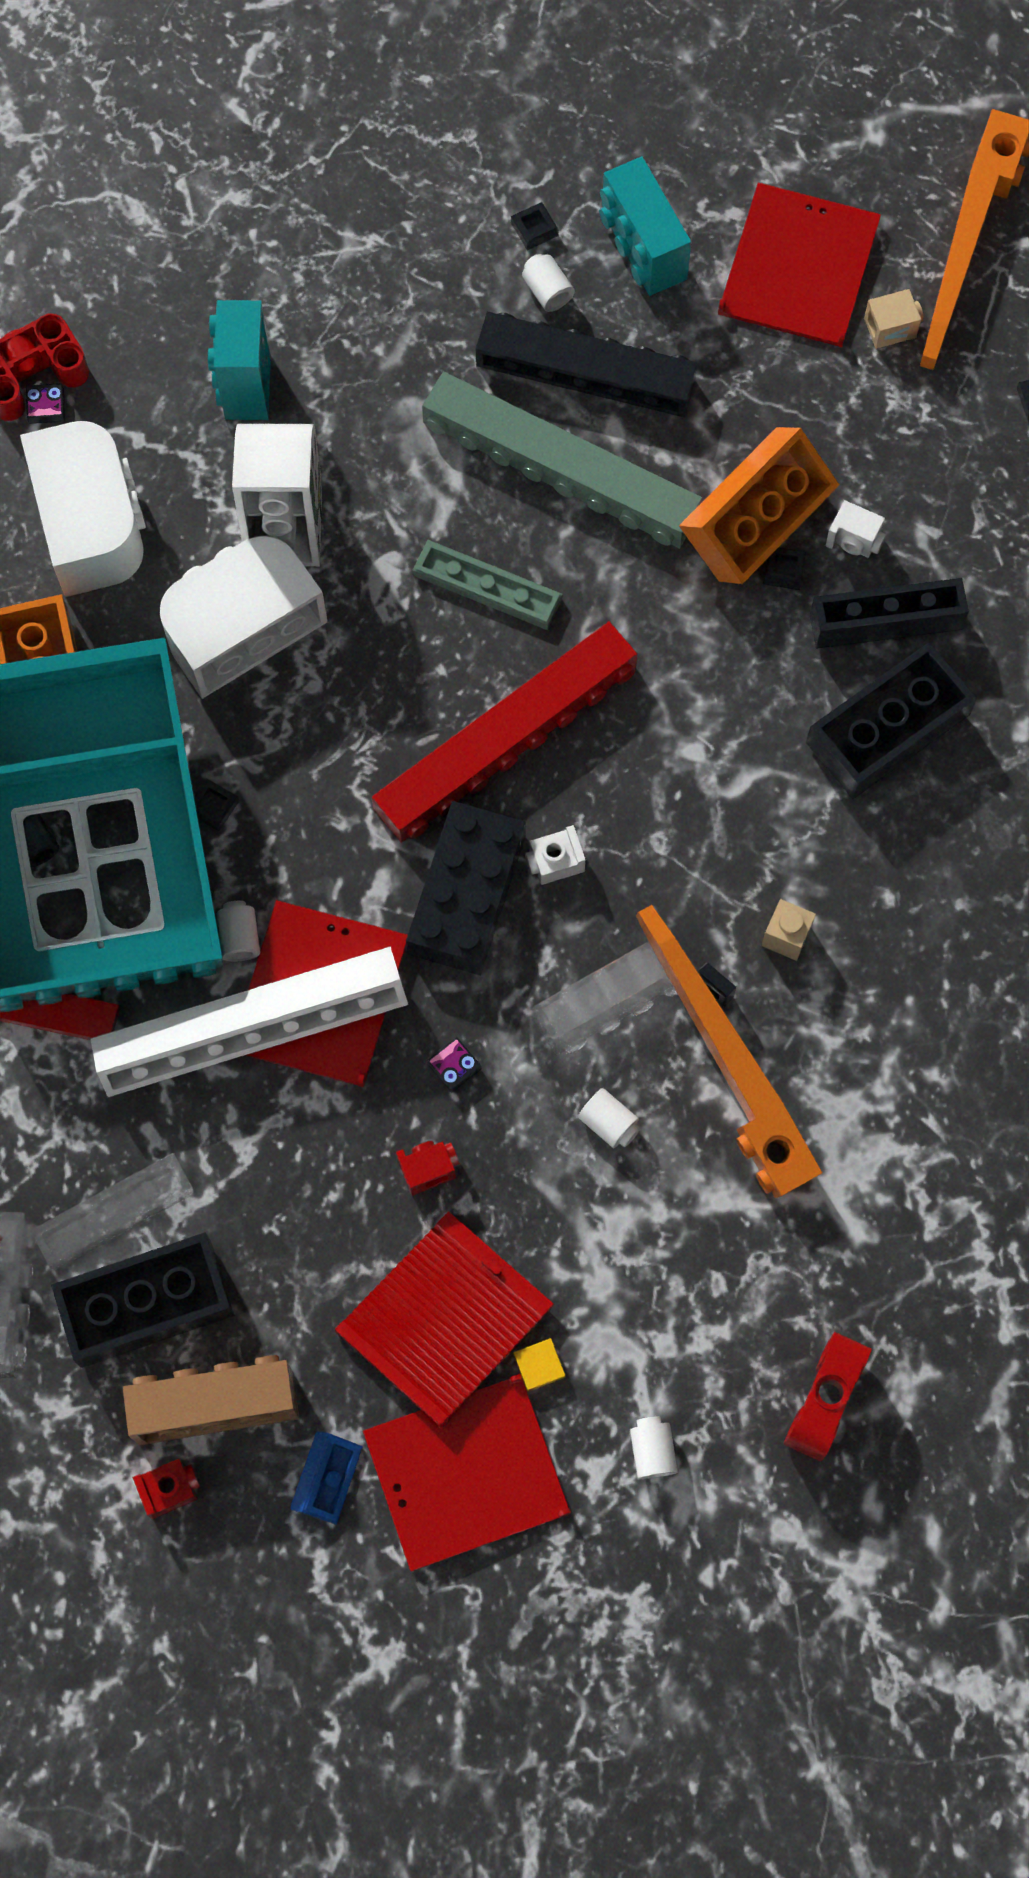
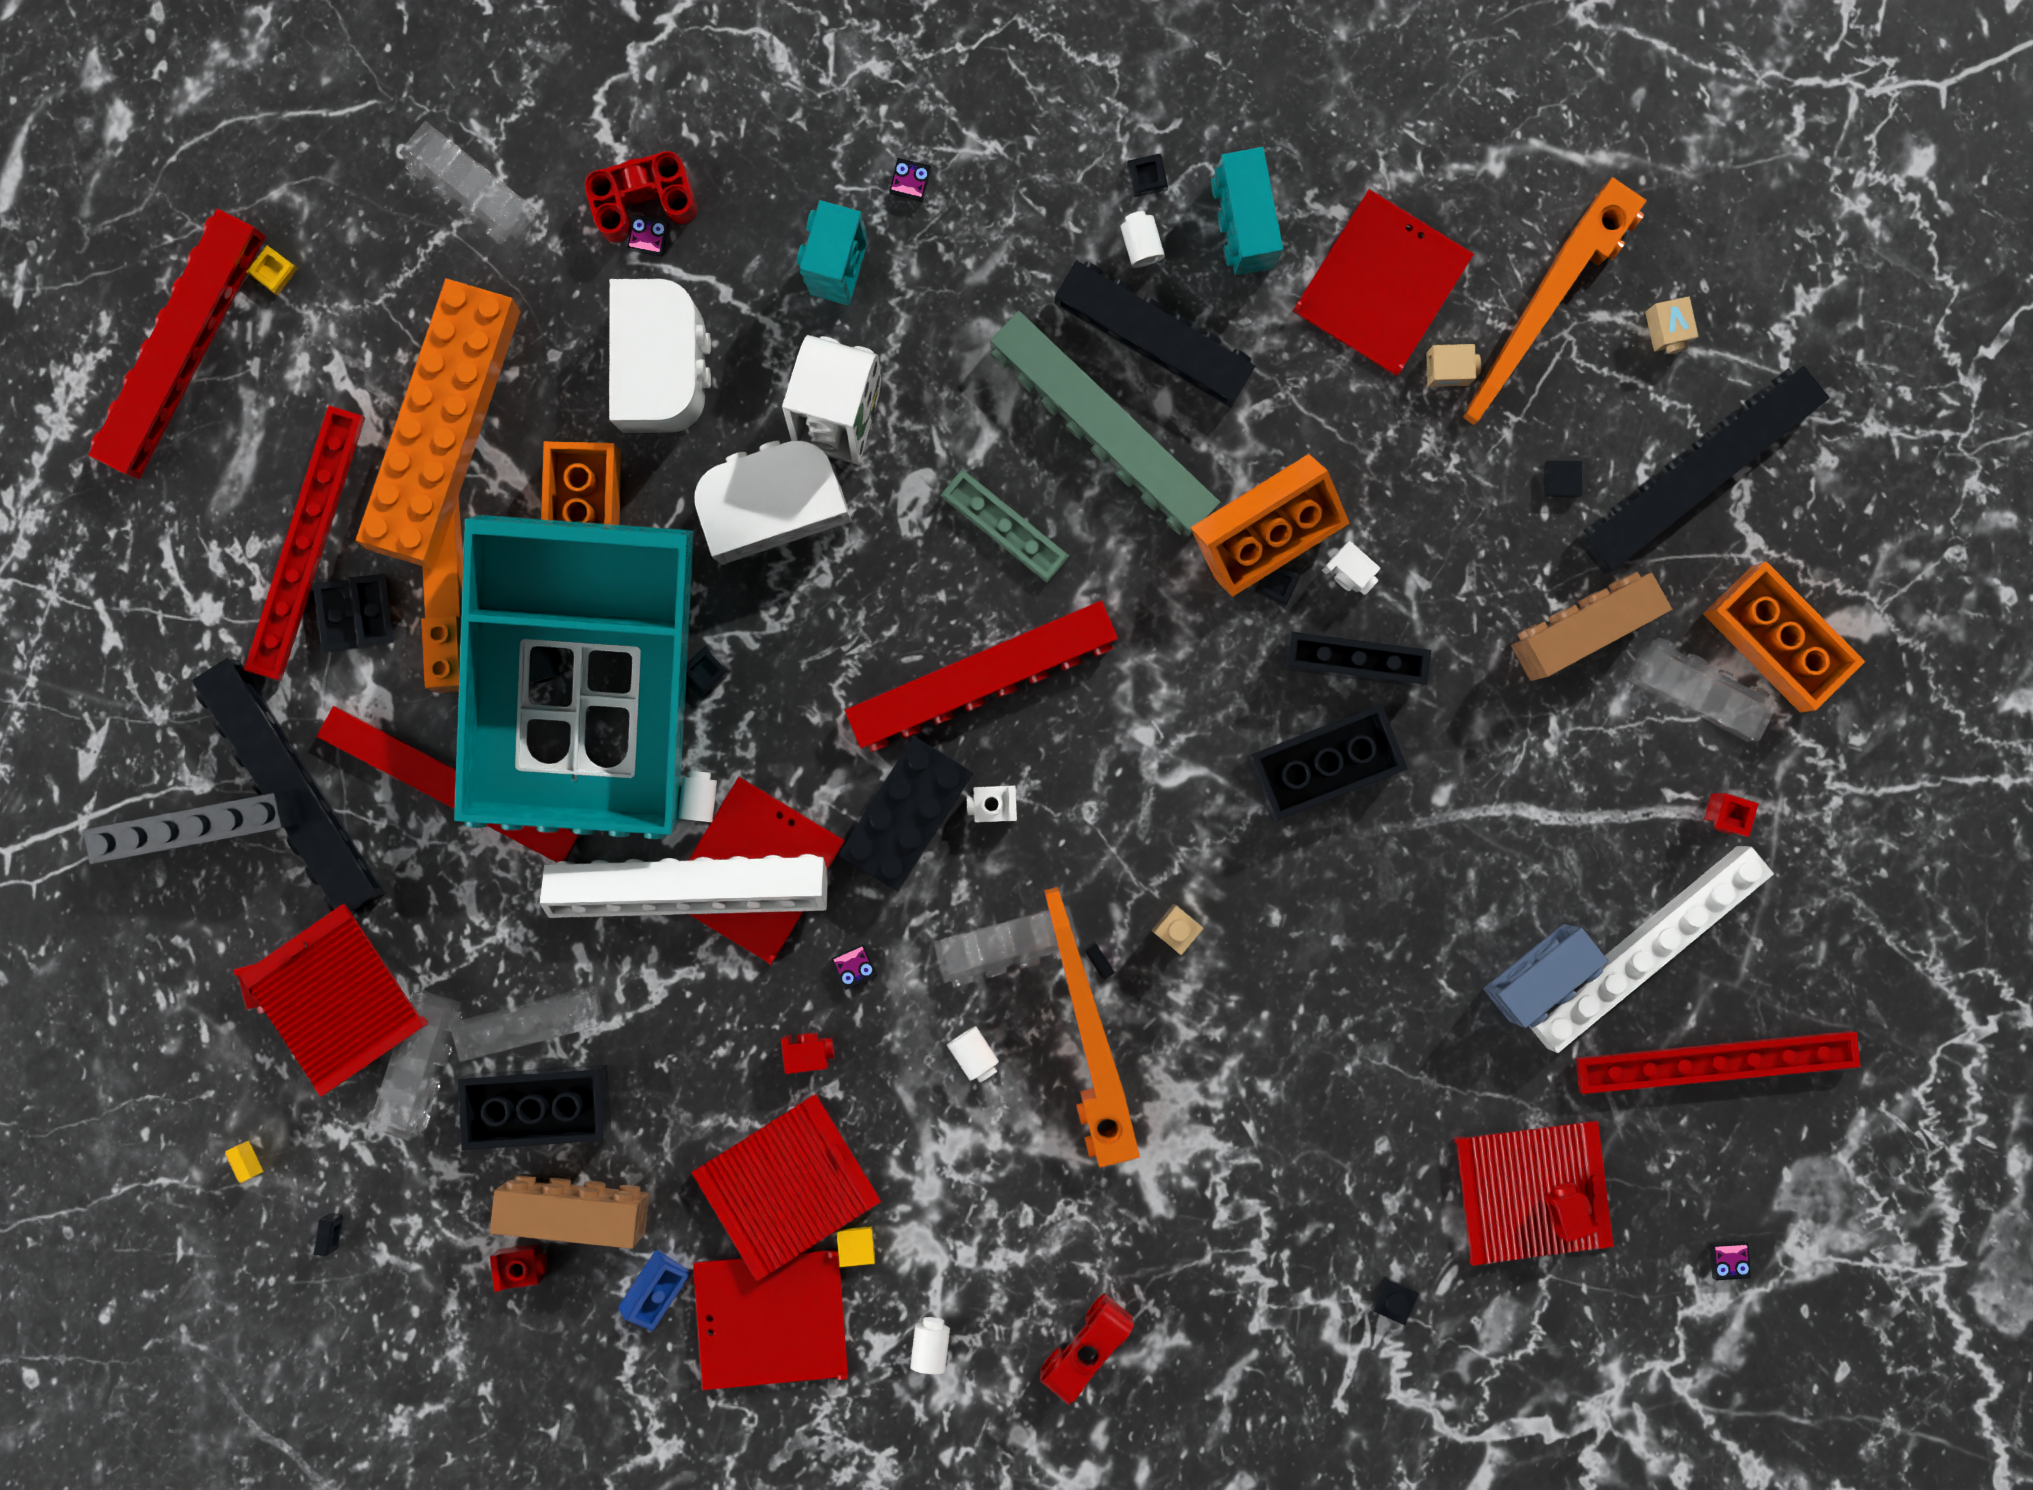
camera: 10 degrees right, 15 degrees up
(298, 287) = (910, 179): none -> tile

